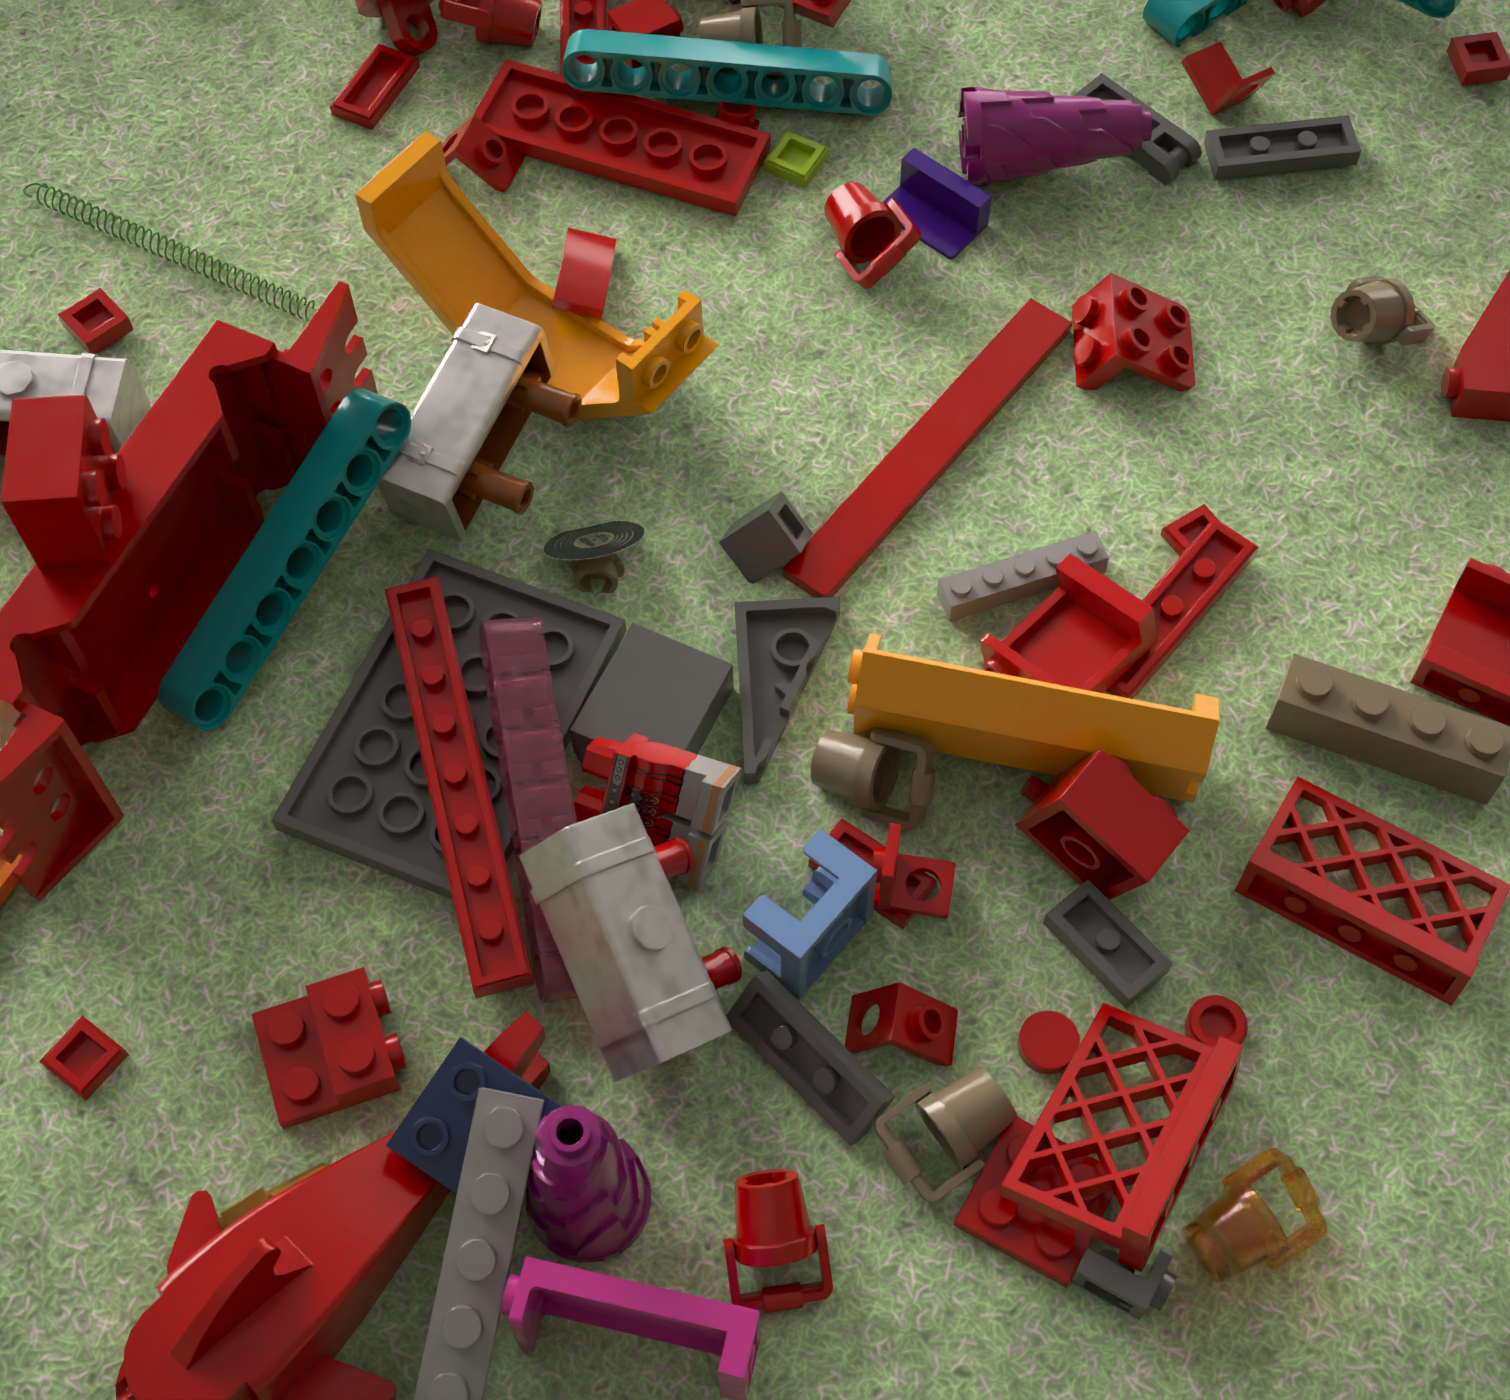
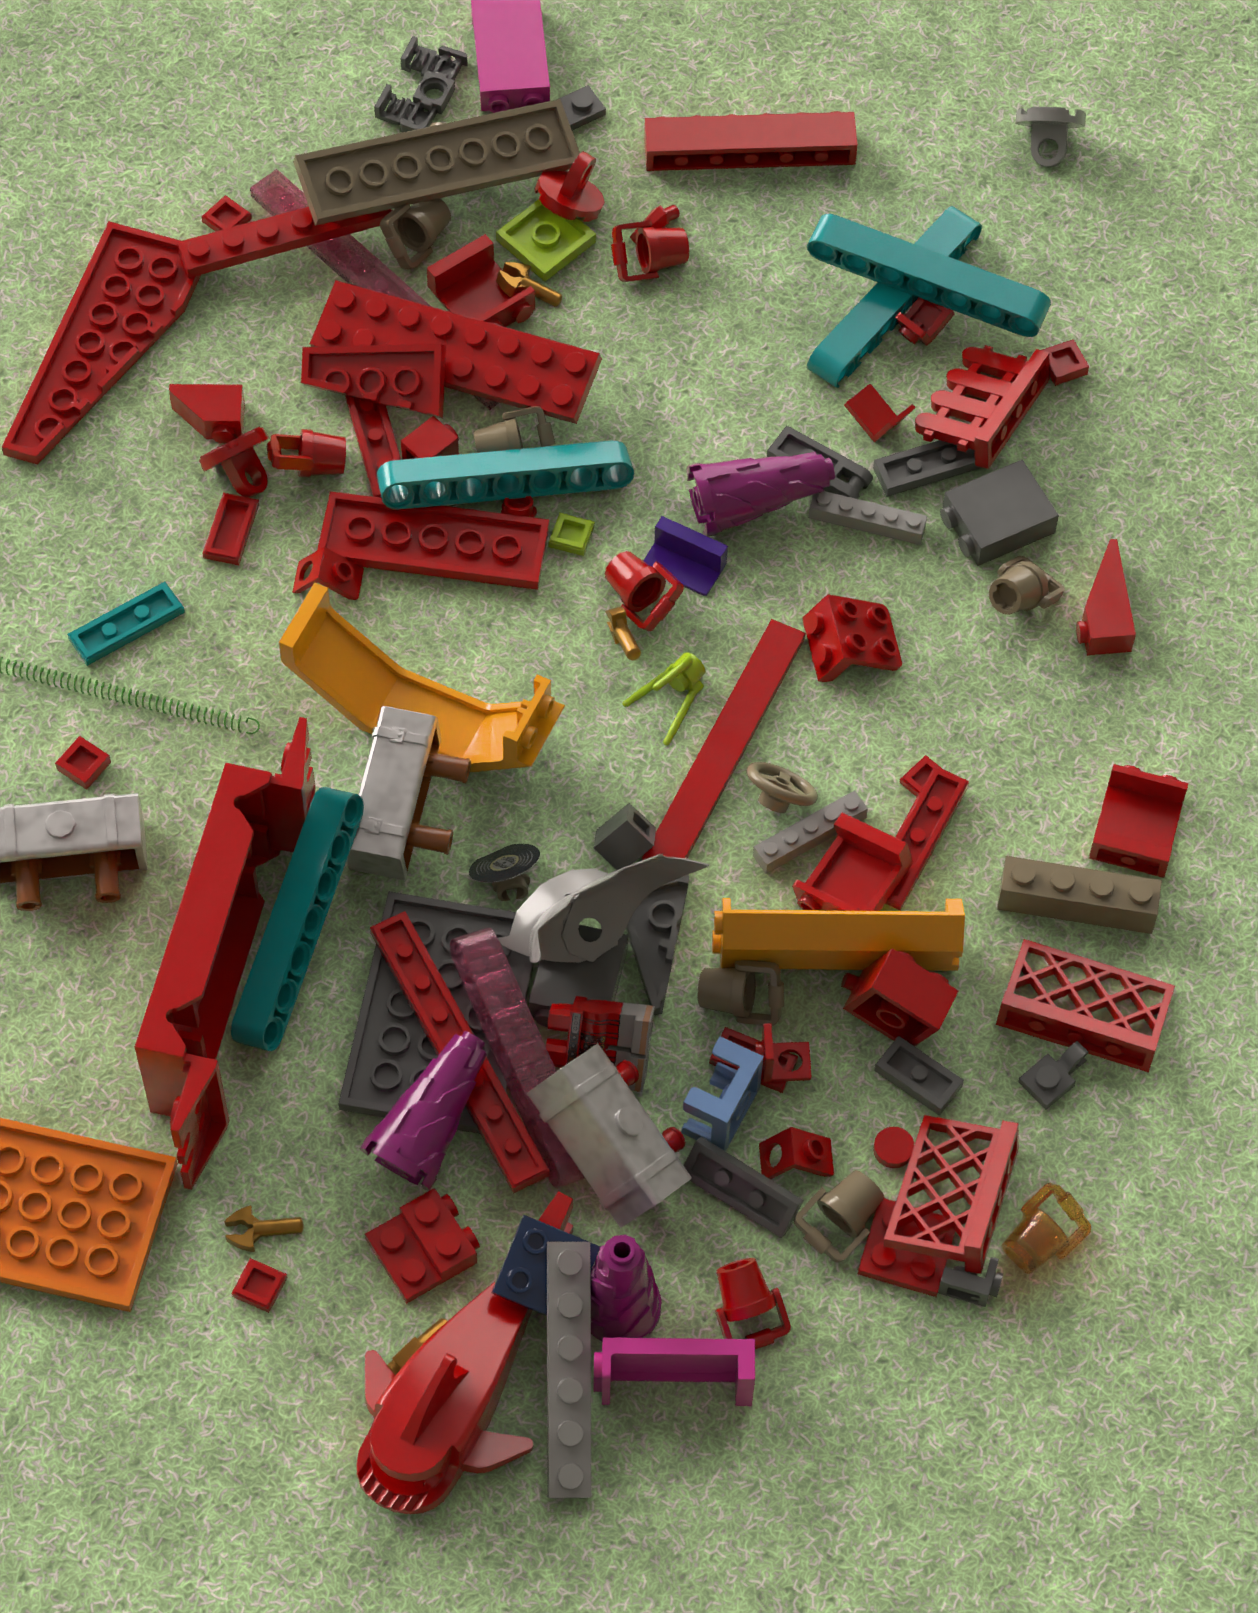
camera: 15 degrees left, 0 degrees up
(62, 481) = (179, 901): red brick -> none
(112, 974) = (259, 1228): none -> pearl gold bar
(210, 171) = (126, 623): none -> teal tile
(376, 862) = (427, 1114): none -> magenta cone
(584, 273) = (440, 658): red slope -> none
(709, 598) = (550, 919): none -> light grey piece
(828, 280) = (621, 633): none -> pearl gold bar
(896, 347) = (681, 676): none -> lime plant
(993, 509) = (780, 787): none -> dark tan piece
(1185, 198) = (868, 517): none -> light grey piece
(1216, 1017) = (997, 1109): red tile -> none
(1304, 988) = (1051, 1079): none -> dark grey plate
(1362, 218) = (998, 513): none -> dark grey brick
(1368, 85) = (991, 420): none -> red fence

